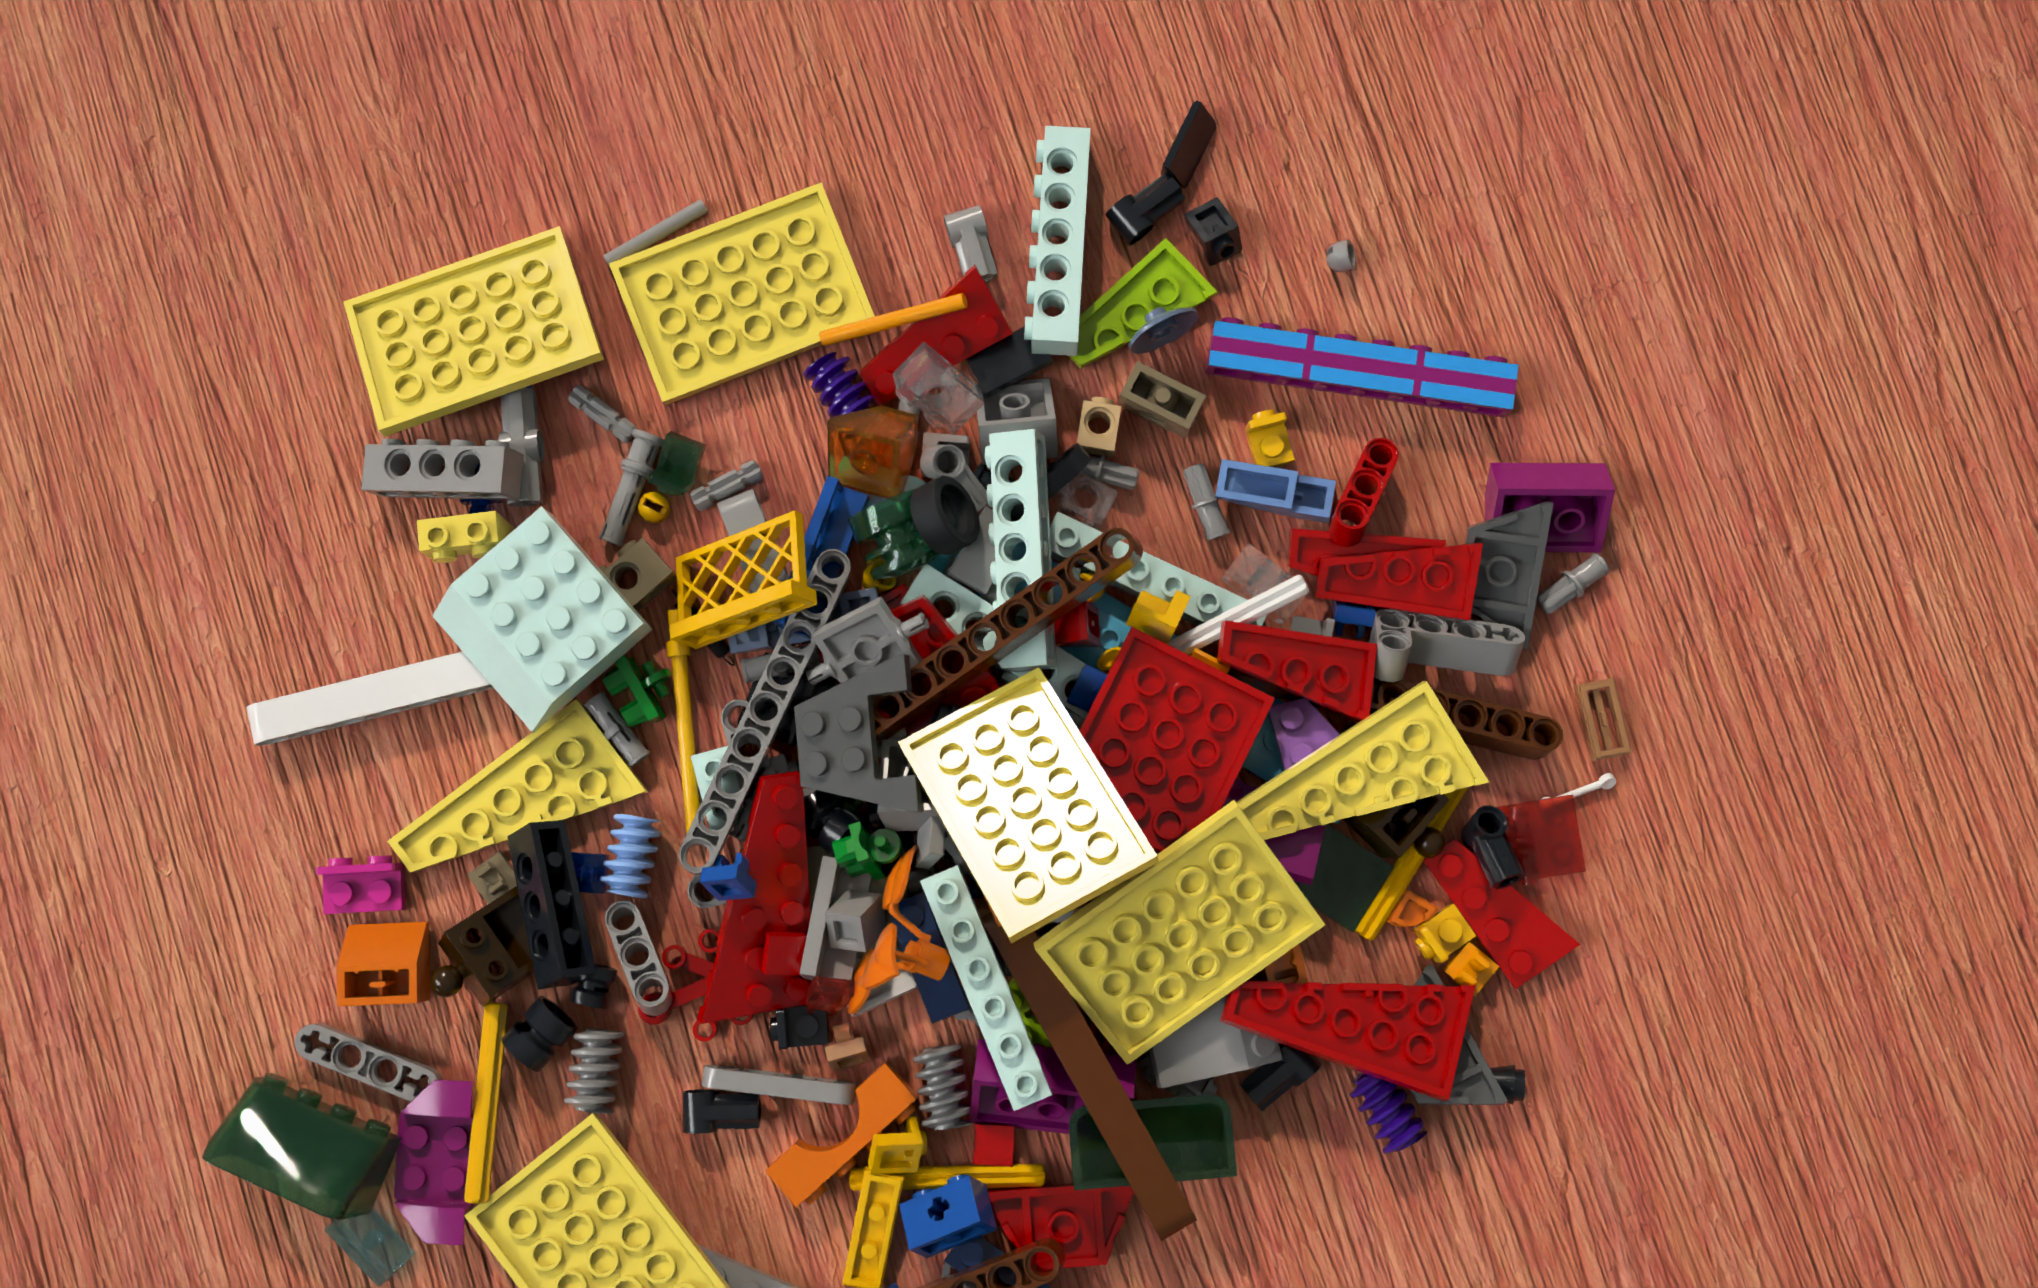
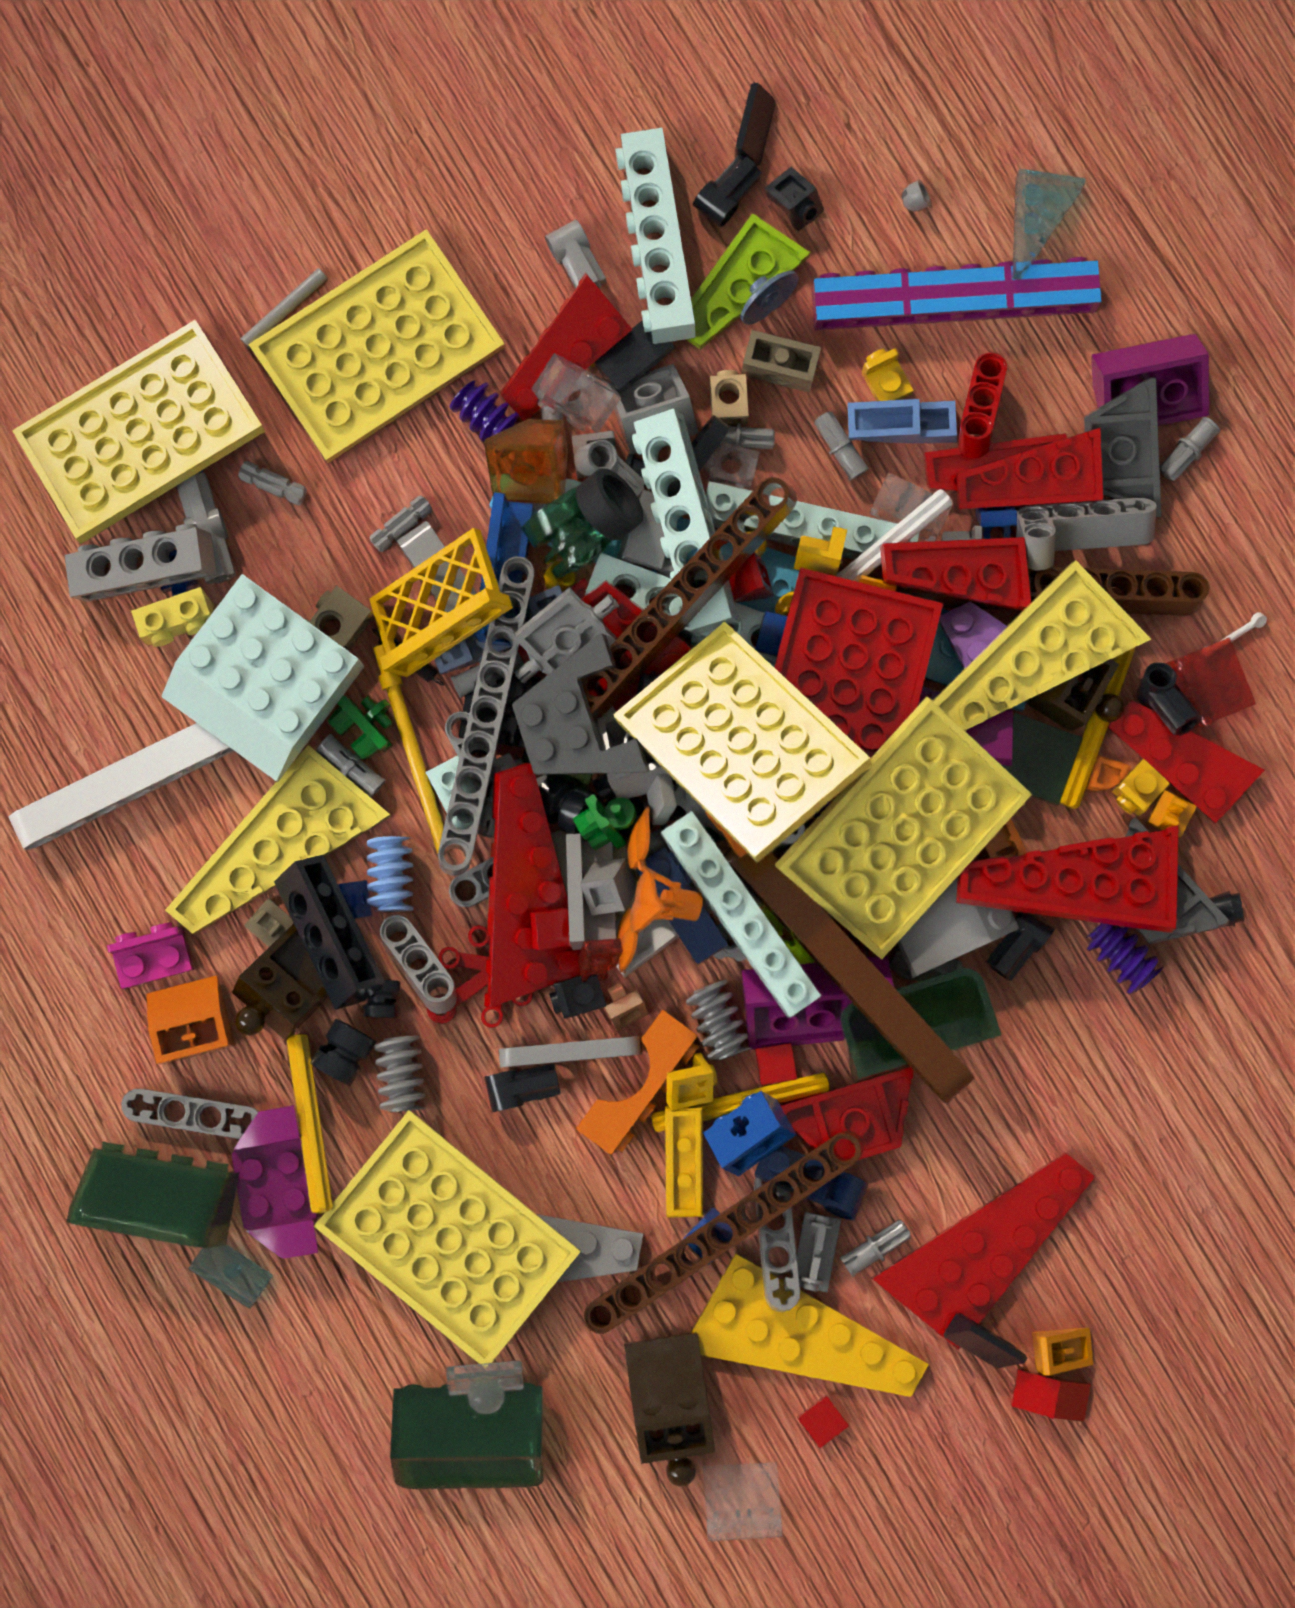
camera: 10 degrees left, 0 degrees up
(636, 471) = (315, 528): light grey pin -> none
(651, 515) = (337, 565): yellow hinge -> none
(677, 464) = (352, 513): clear green bracket -> none
(728, 880) = (488, 870): blue tile -> none
(893, 319) = (522, 338): light orange bar -> none
(1468, 296) = (1039, 207): none -> clear light blue wing
(1588, 722) = (1230, 572): medium nougat tile -> none

